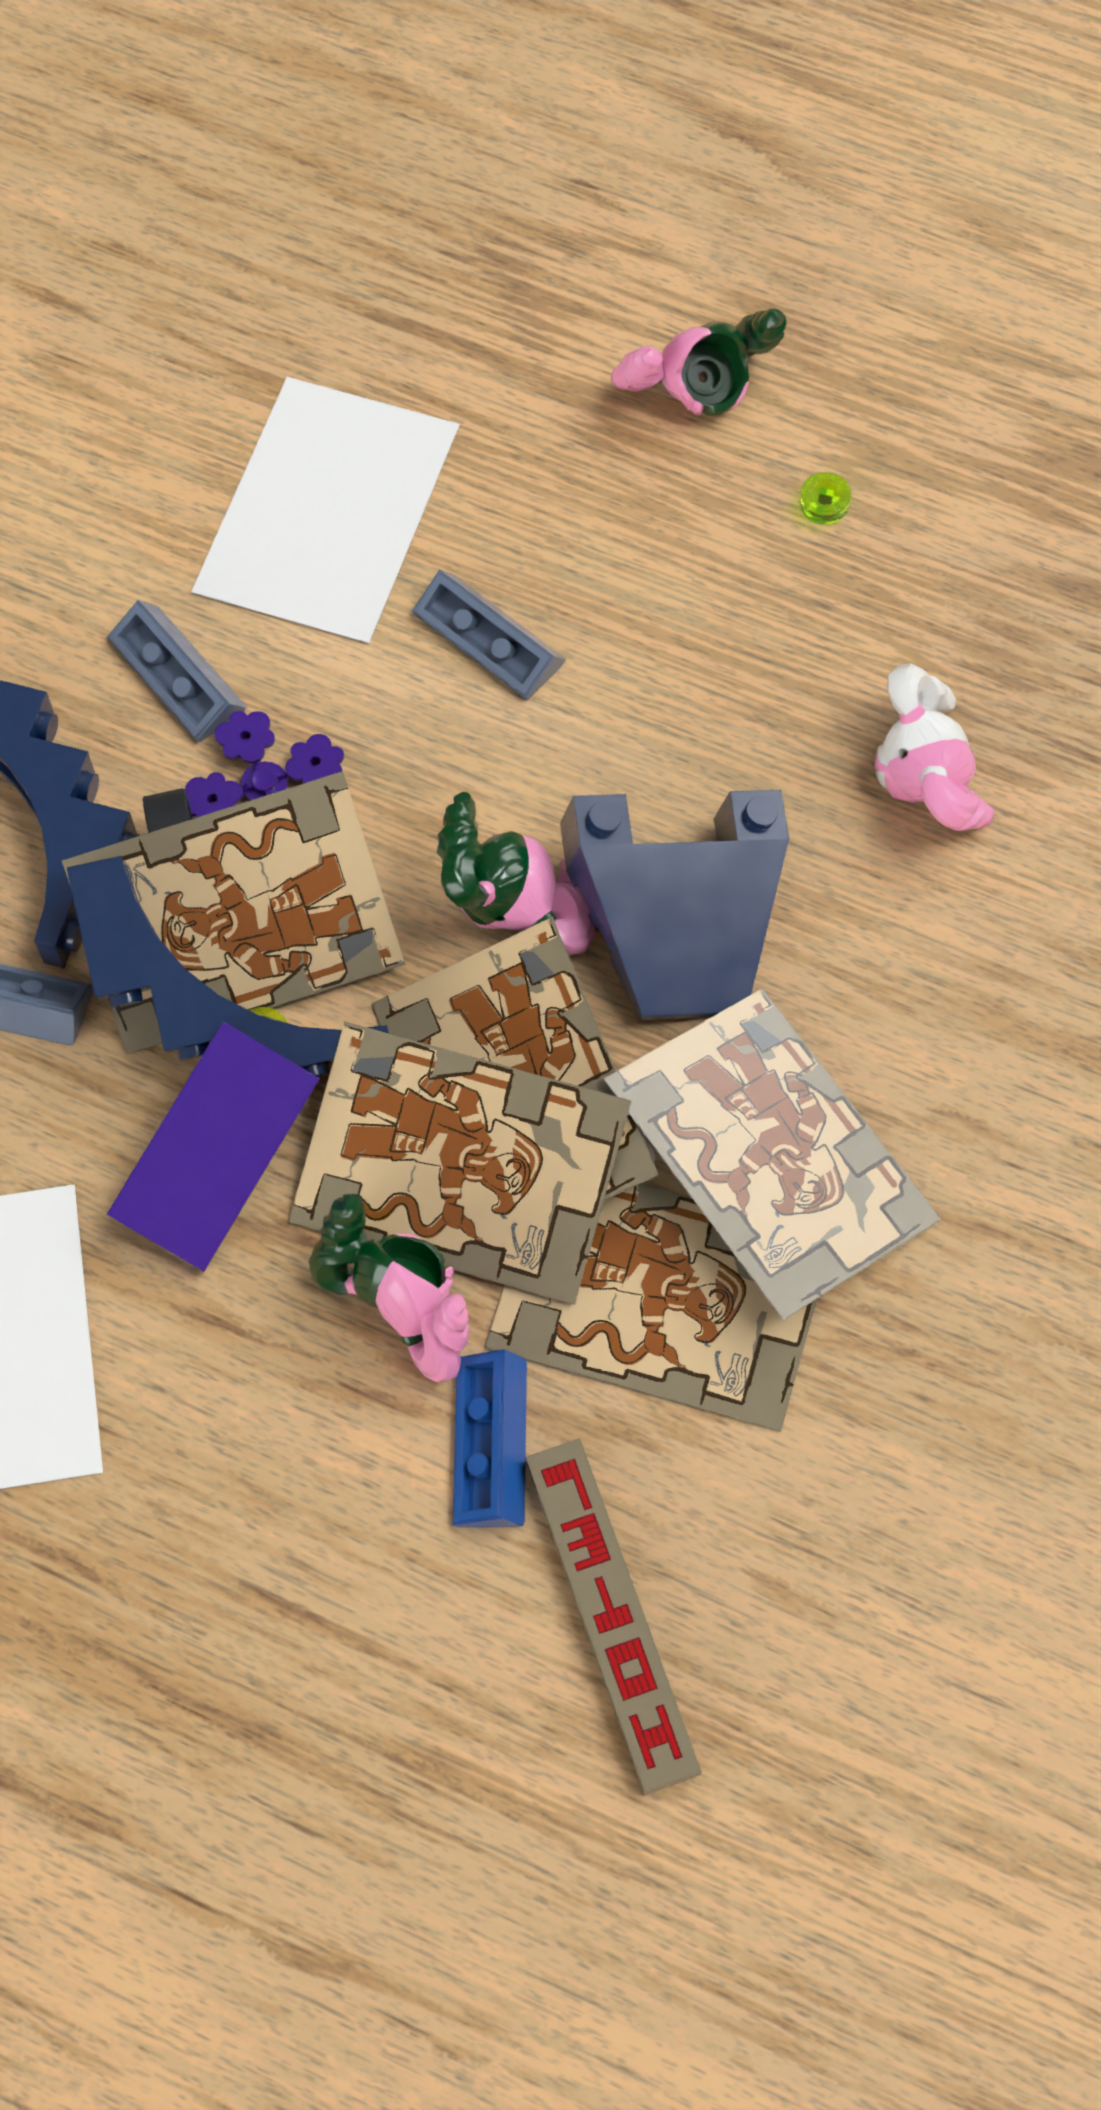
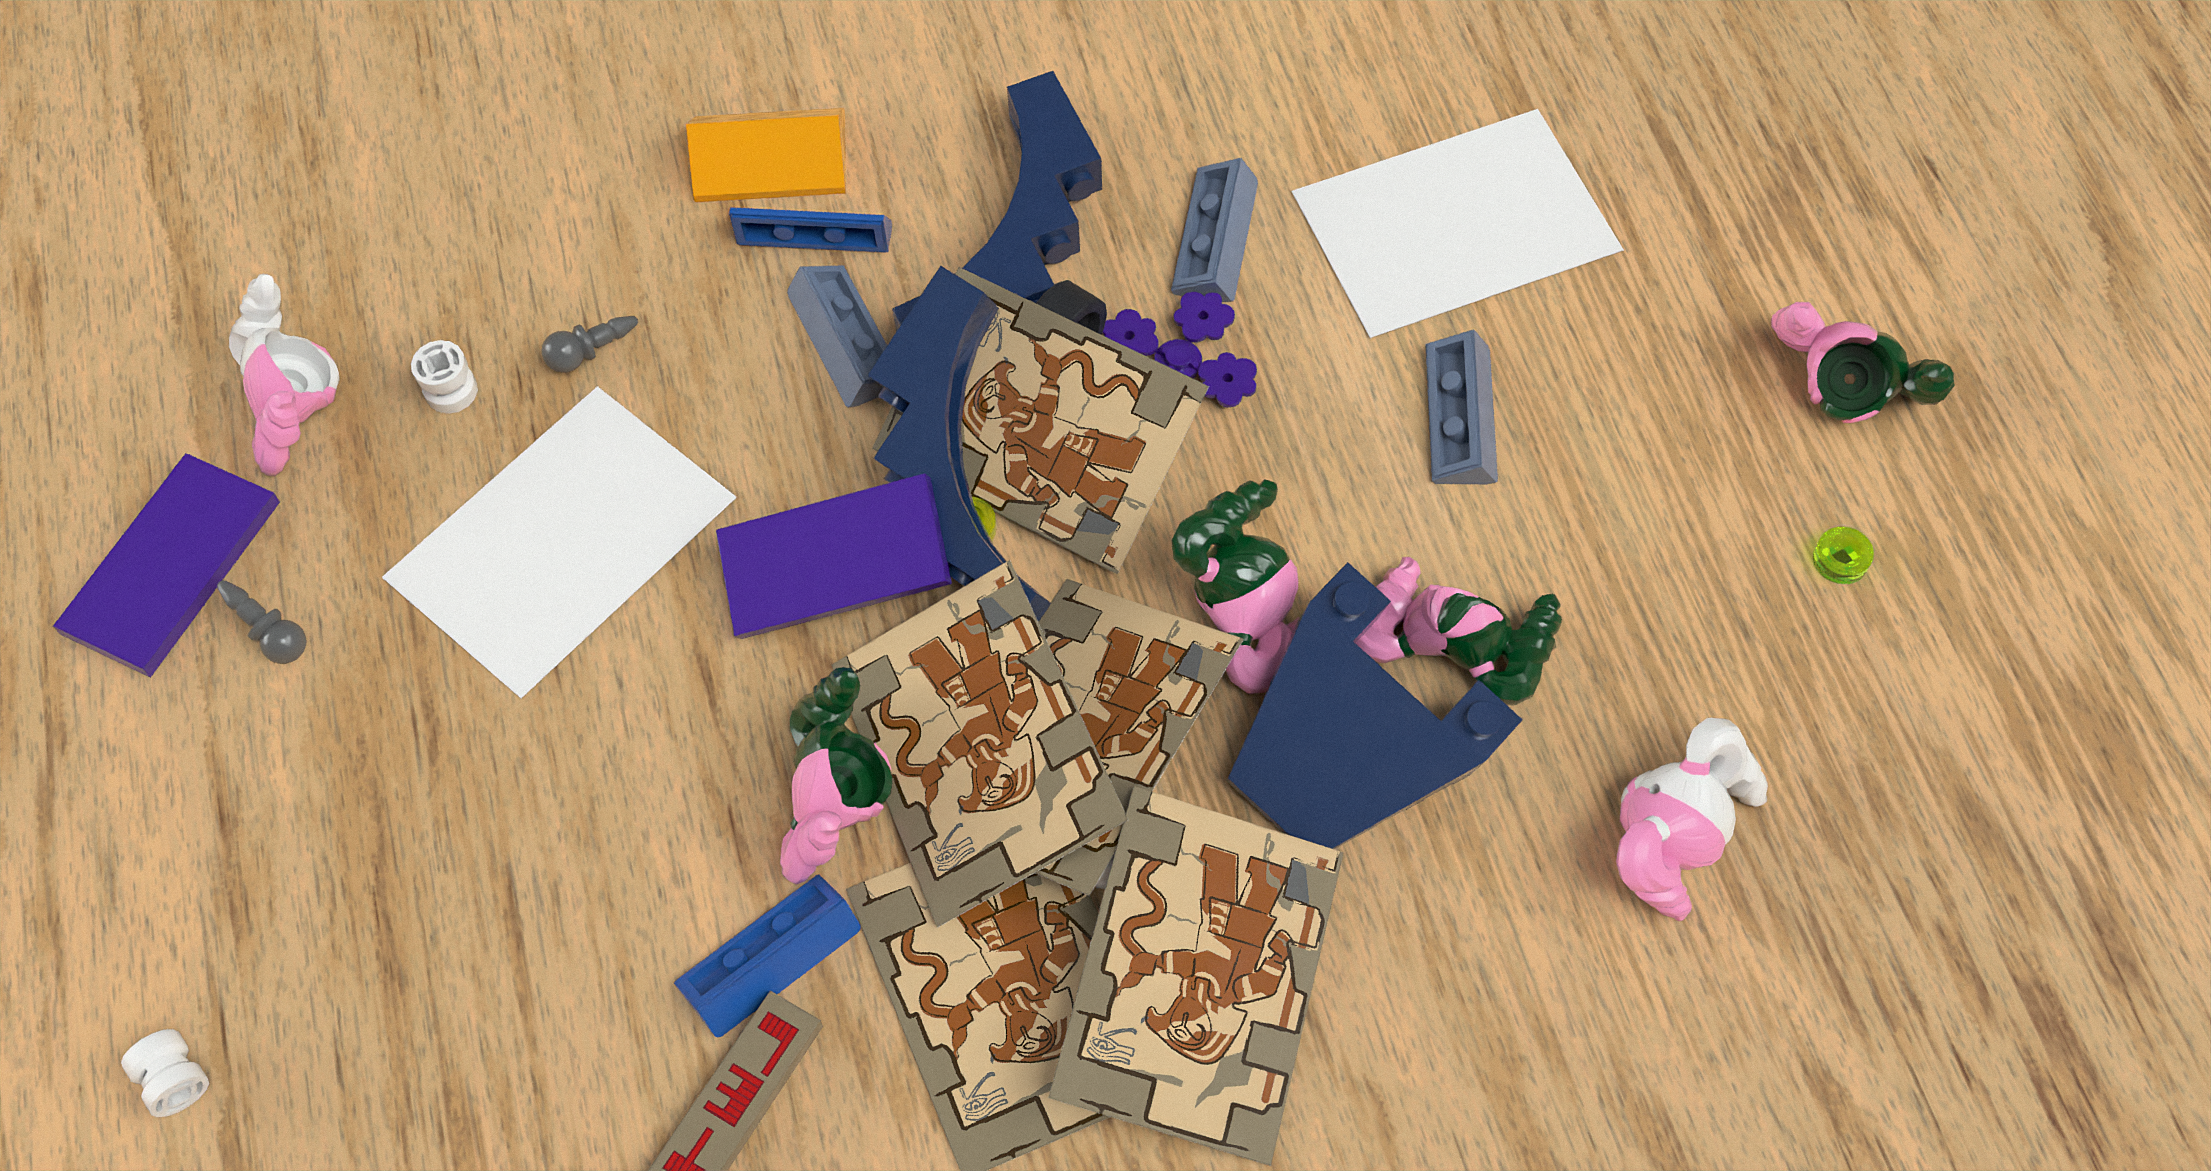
camera: 50 degrees right, 5 degrees down
(198, 1962) = (165, 1073): none -> white wheel
(675, 769) = (1465, 630): none -> hair

